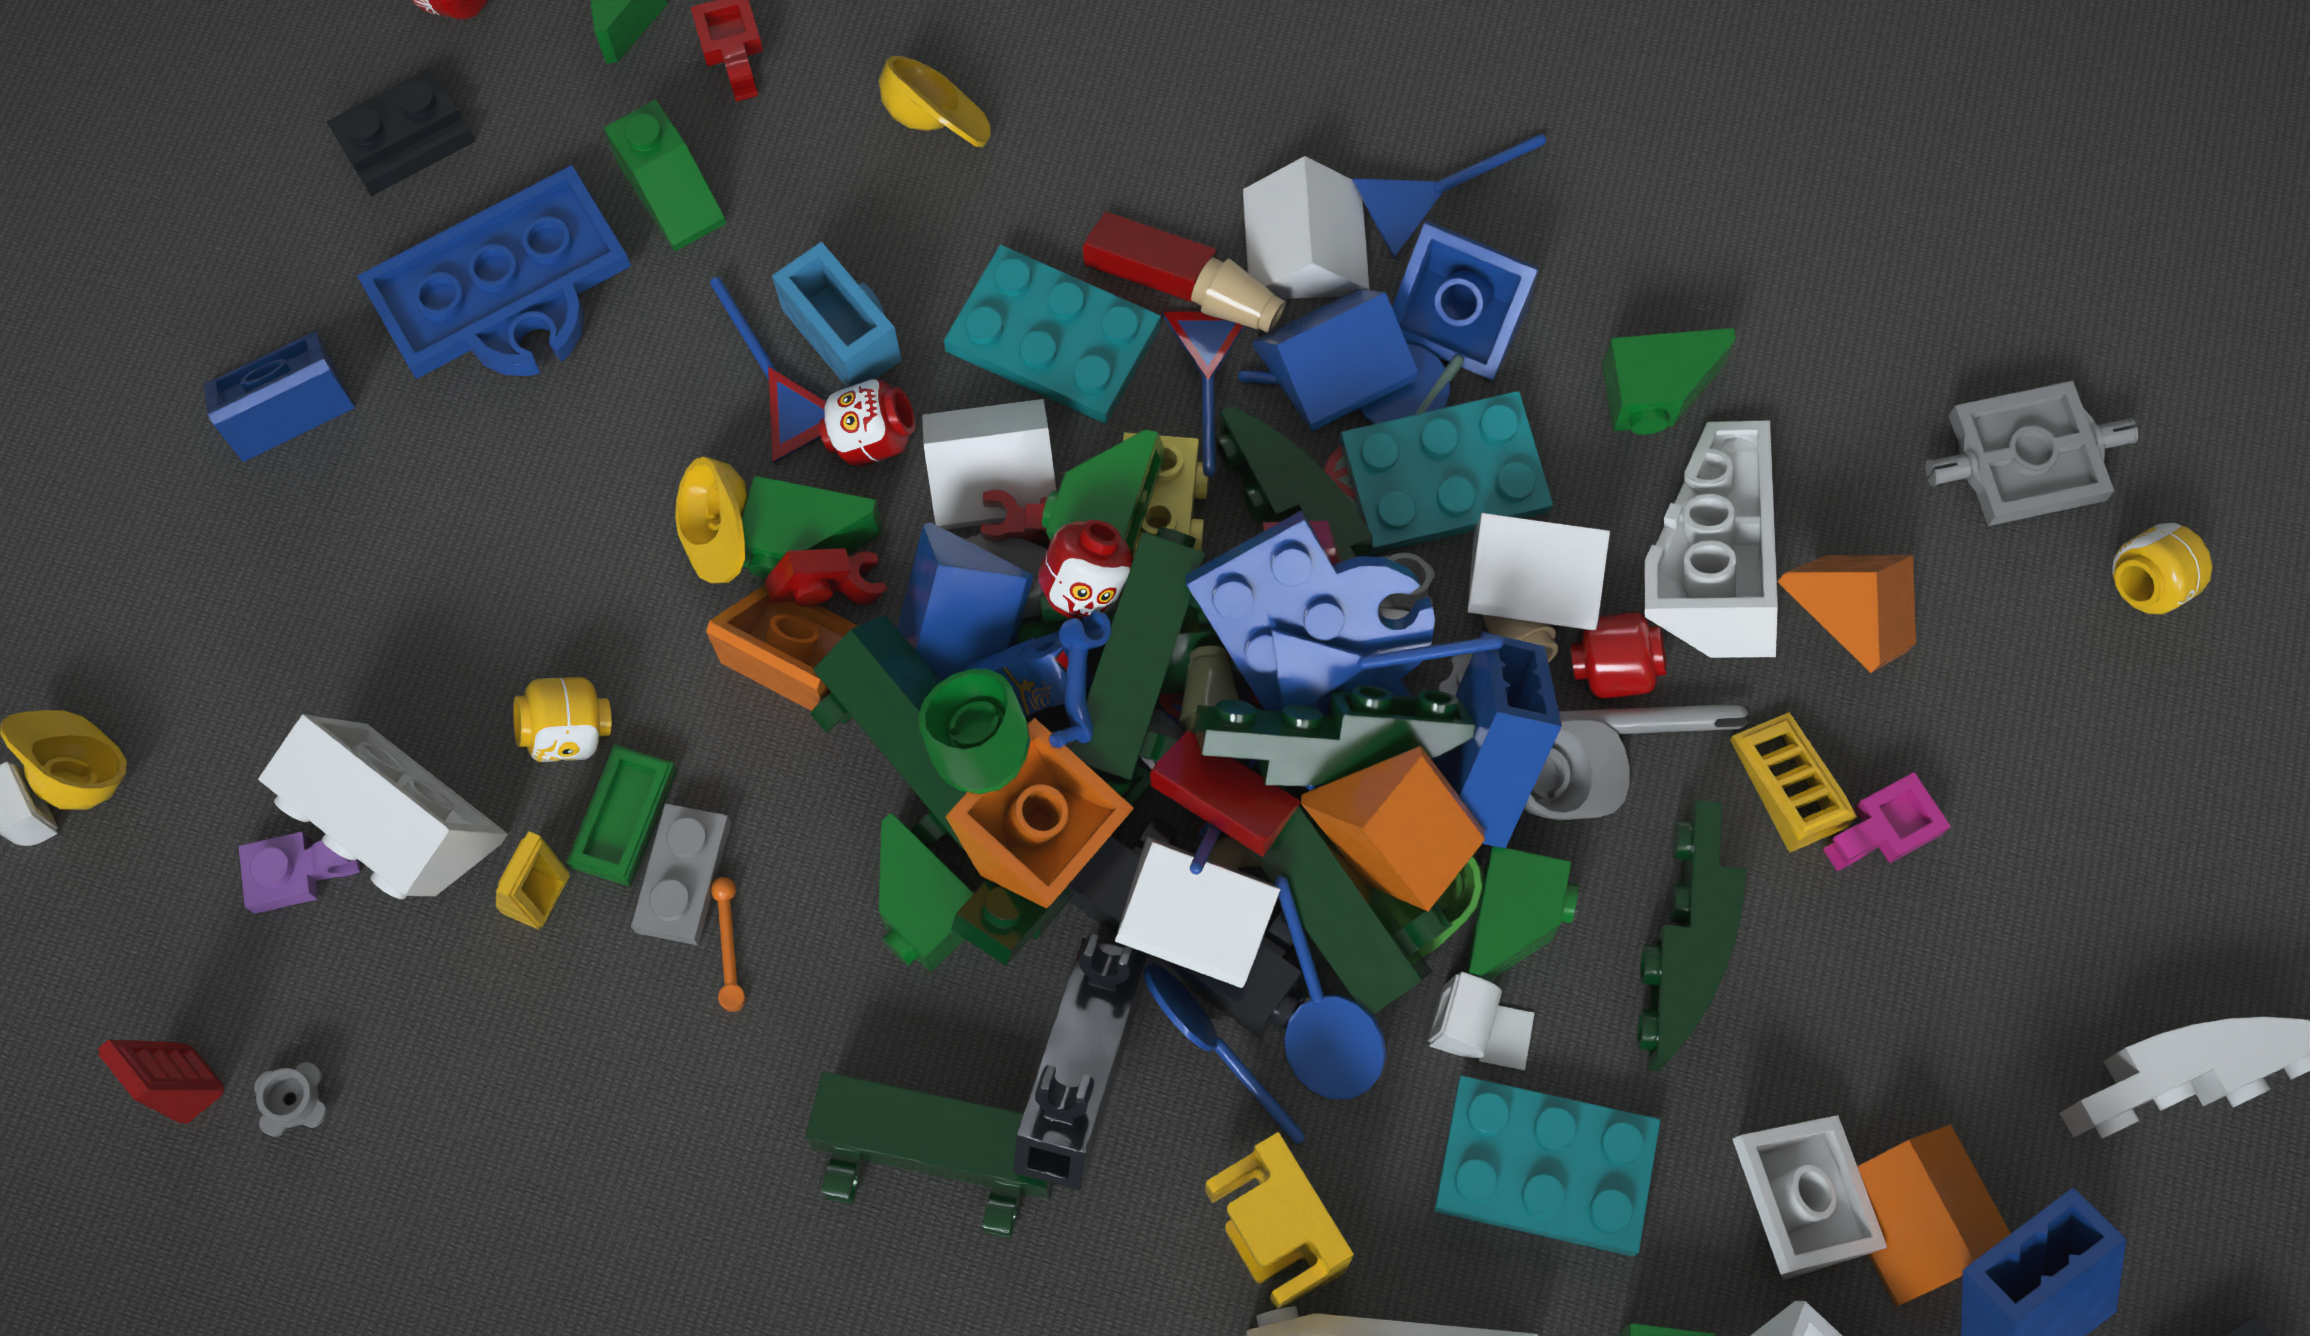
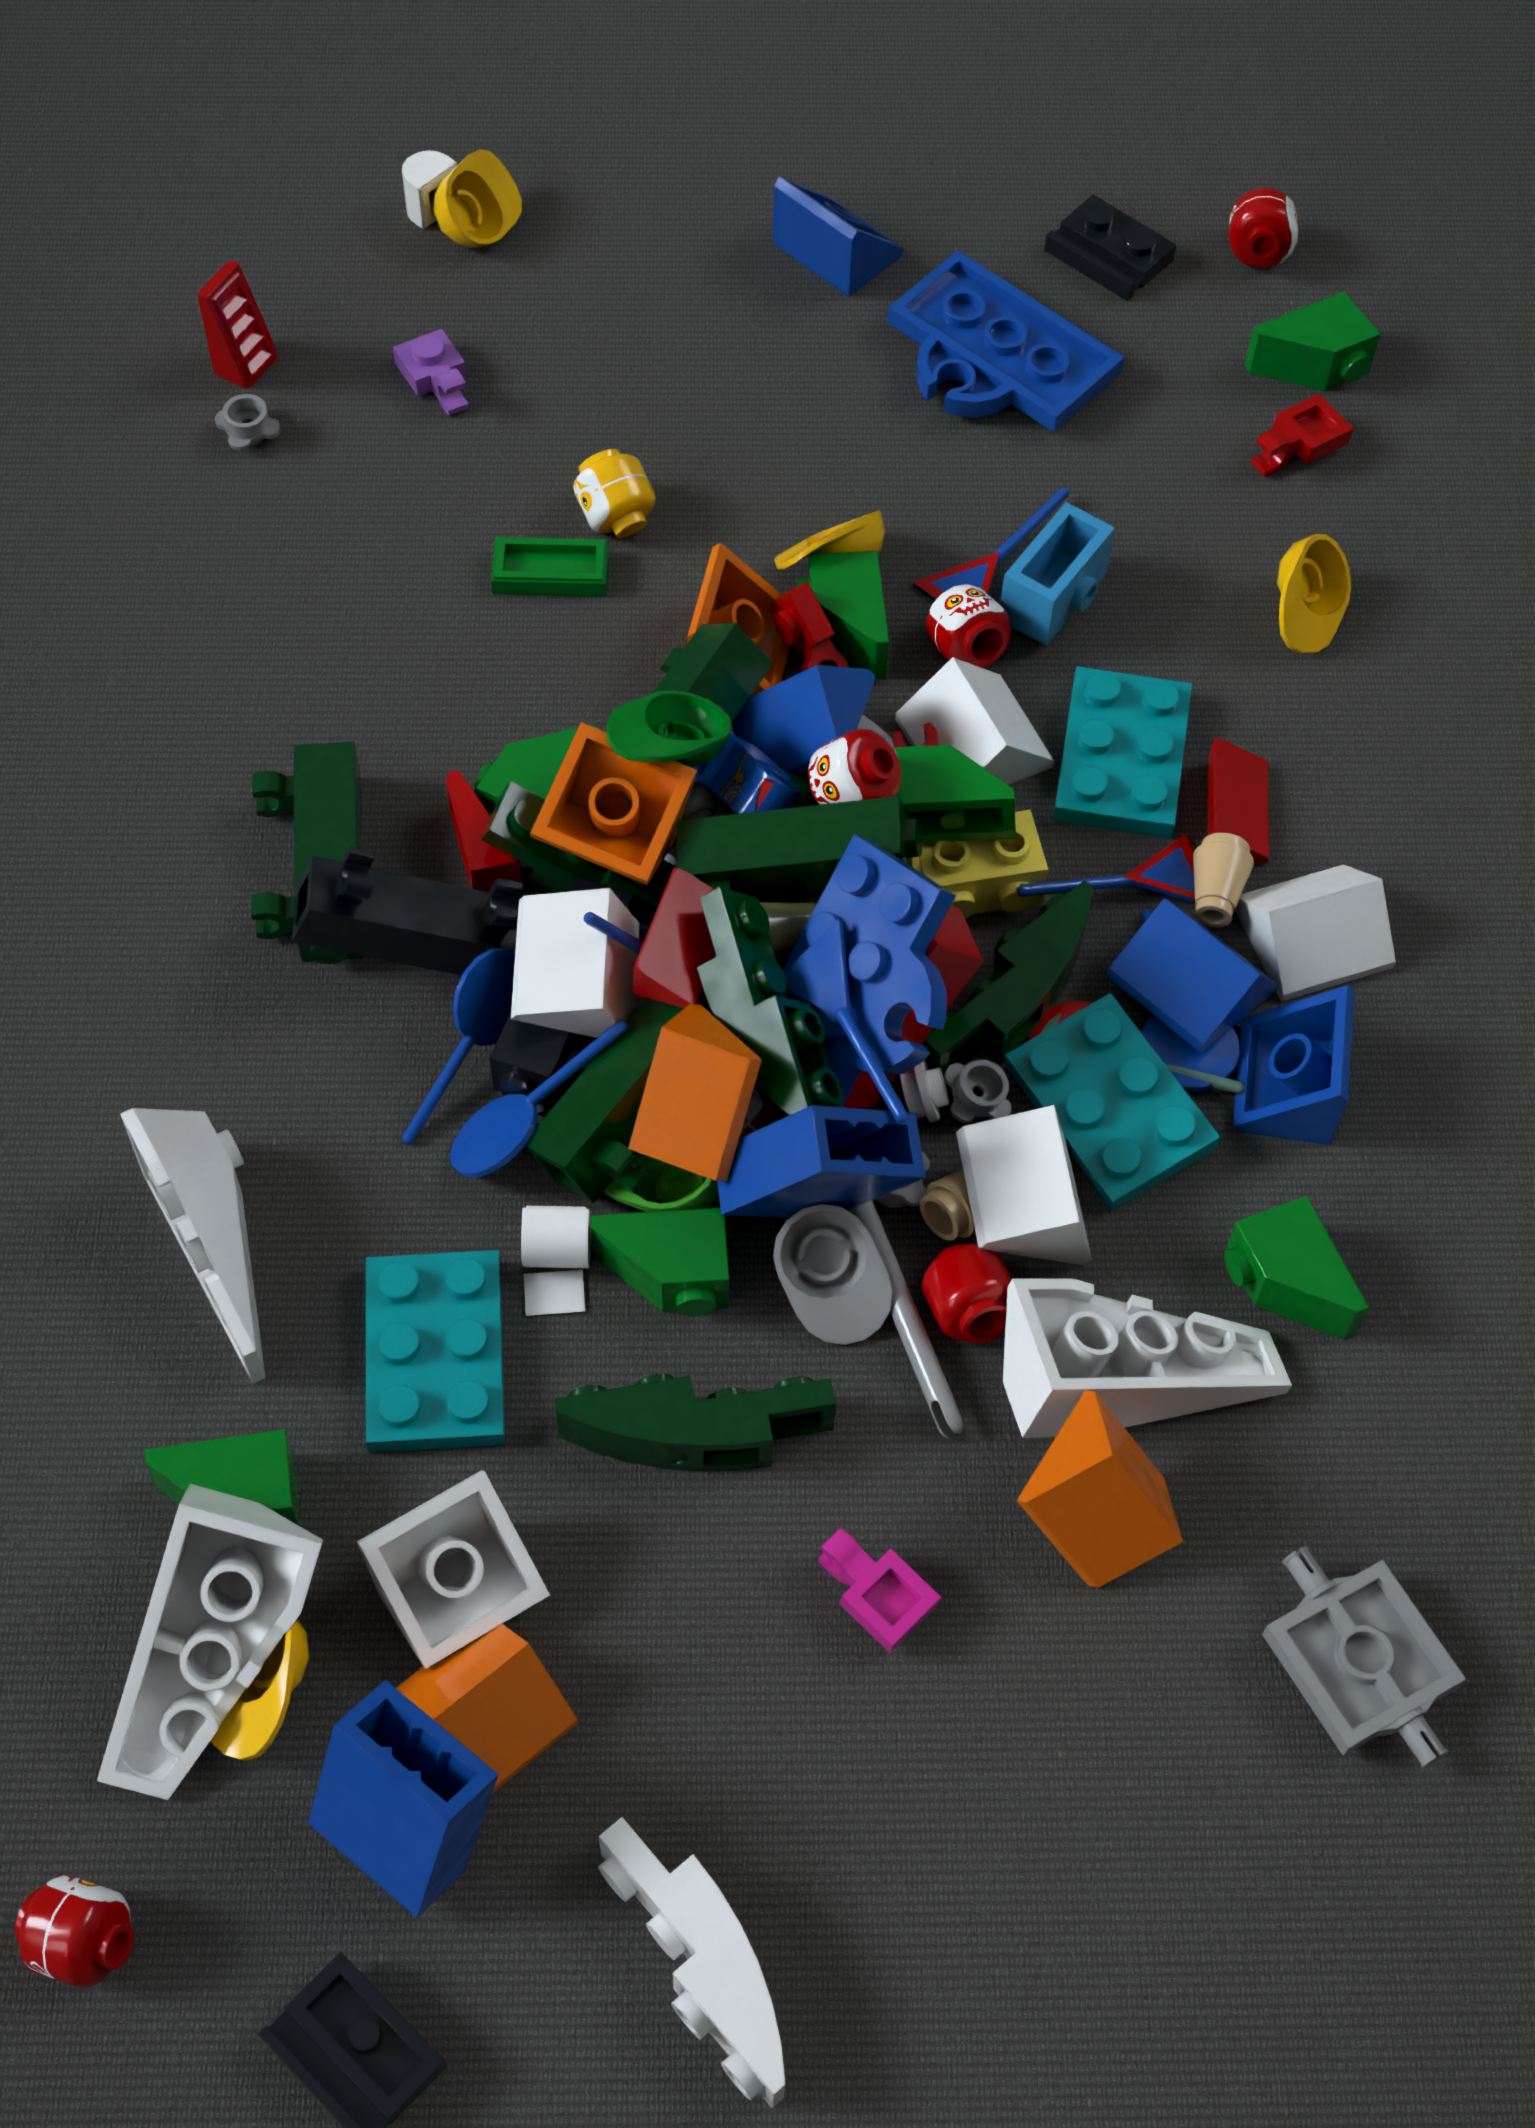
camera: 70 degrees right, 10 degrees down
(378, 806) = (496, 393): white slope -> none
(531, 882) = (462, 504): yellow slope -> none
(664, 175) = (1146, 422): green slope -> none
(681, 874) = (511, 620): light grey plate -> none
(730, 996) = (416, 684): orange hinge -> none
(971, 978) = (470, 818): none -> red slope
(1078, 643) = (740, 800): blue piece -> none
(1280, 1221) = (325, 1115): yellow panel -> none
(1403, 204) = (1390, 1002): blue piece -> none
(1794, 830) = (873, 1536): yellow slope -> none
(2162, 568) = (1275, 1817): yellow head -> none

